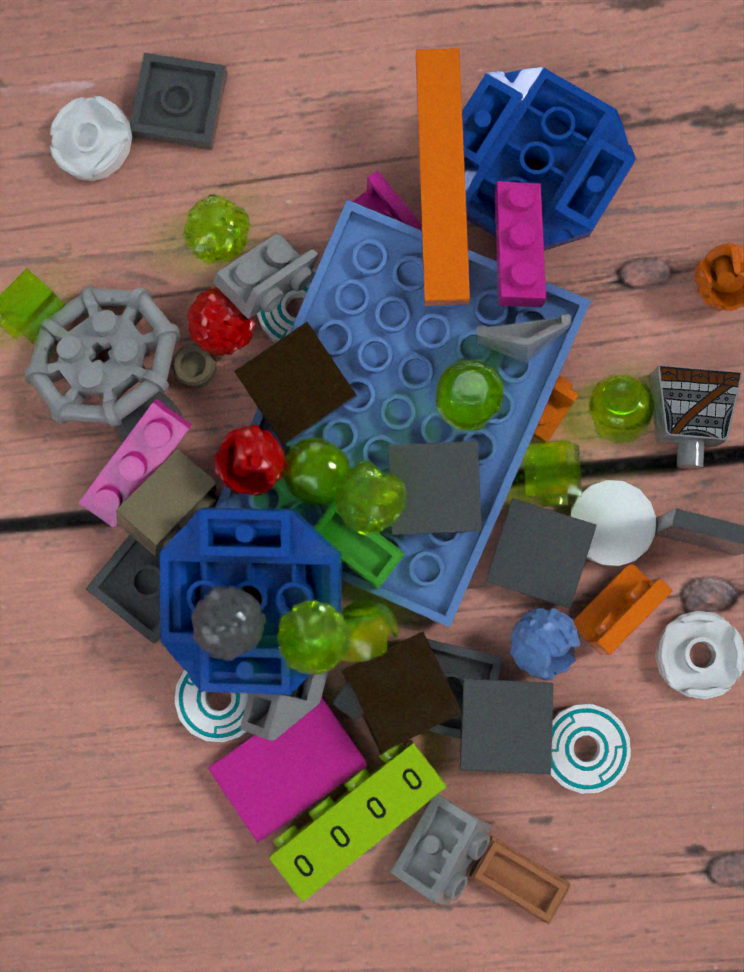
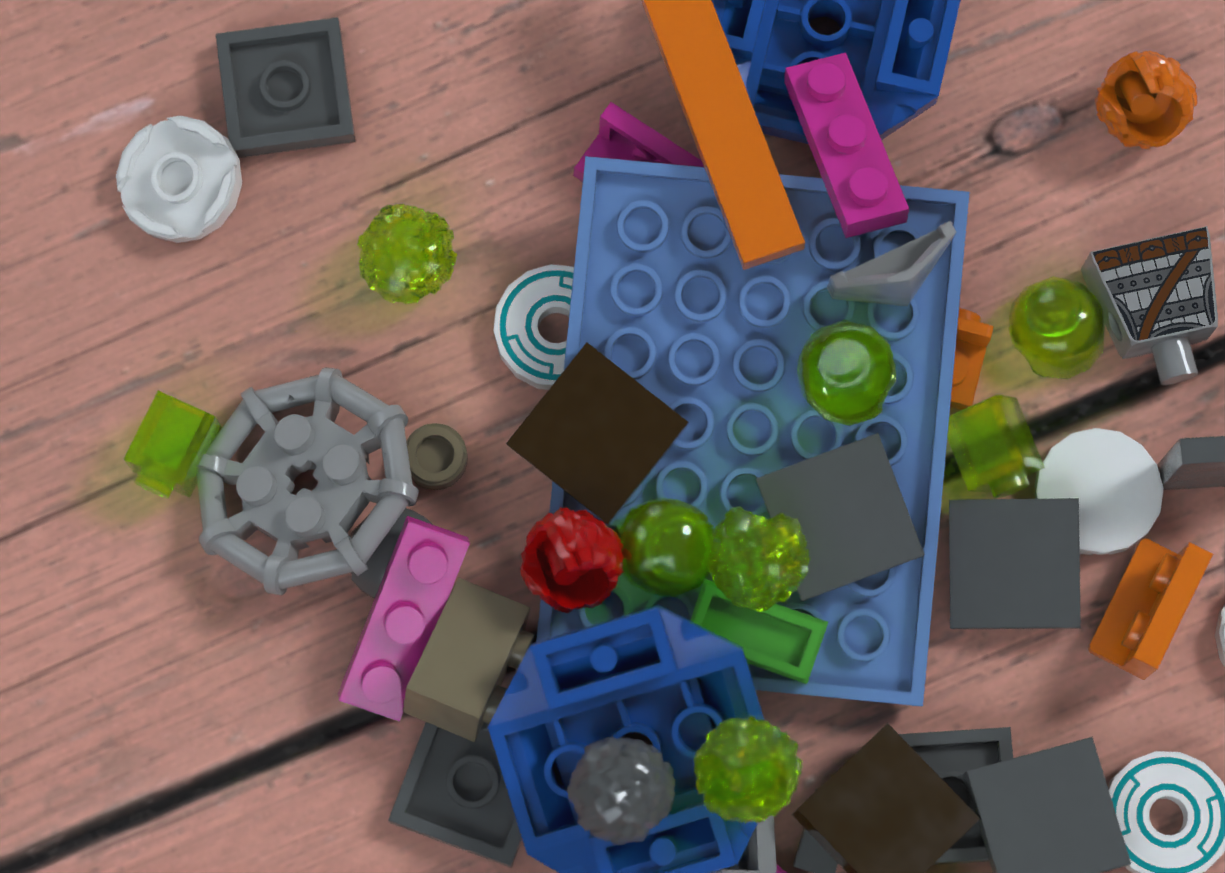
camera: 20 degrees left, 5 degrees down
(218, 323) = (456, 381): red piece -> none
(264, 275) = (502, 296): light grey bracket -> none
(371, 627) = (820, 741): clear neon green hair -> none
(544, 643) = (1060, 686): medium blue piece -> none

